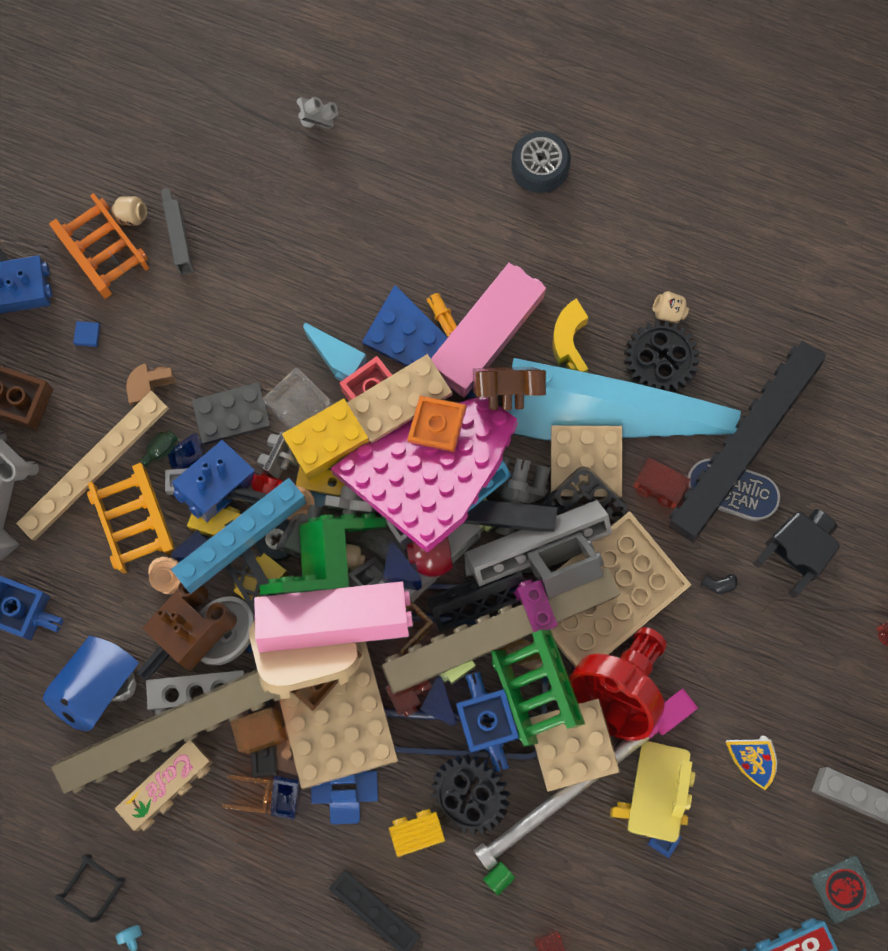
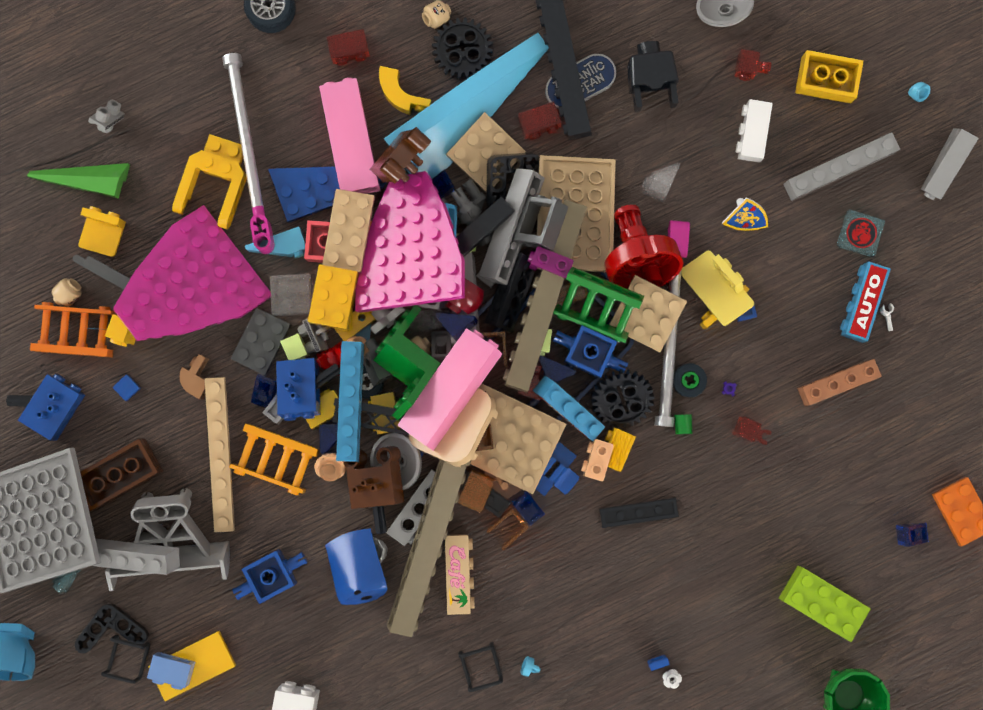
camera: 50 degrees left, 10 degrees up
(134, 285) = (119, 333): none -> yellow brick
(159, 447) = (243, 403): clear green plant -> none
(210, 194) = (101, 231): none -> yellow bracket
(229, 304) = (189, 282): none -> dark pink wing
(251, 447) = (294, 347): none -> yellowish green brick
(253, 151) = (97, 179): none -> bright green wedge
(364, 236) = (219, 159): none -> yellow plate
(390, 824) = (597, 460): none -> light nougat bracket
(413, 749) = (568, 408): none -> dark azure brick
(437, 423) = (387, 222): orange tile -> none
(441, 313) = (314, 156): light orange axle -> none
(461, 175) = (233, 63): none -> flat silver piece
(519, 447) = (443, 184): none -> clear blue slope
(536, 840) = (680, 383): none -> black bush
(568, 258) = (348, 47): none -> clear red brick
(574, 894) = (729, 388): none -> dark purple piece
(710, 646) = (660, 181): none -> clear slope
(720, 586) = (631, 143): black arm -> none
(842, 692) = (754, 130): none -> white brick

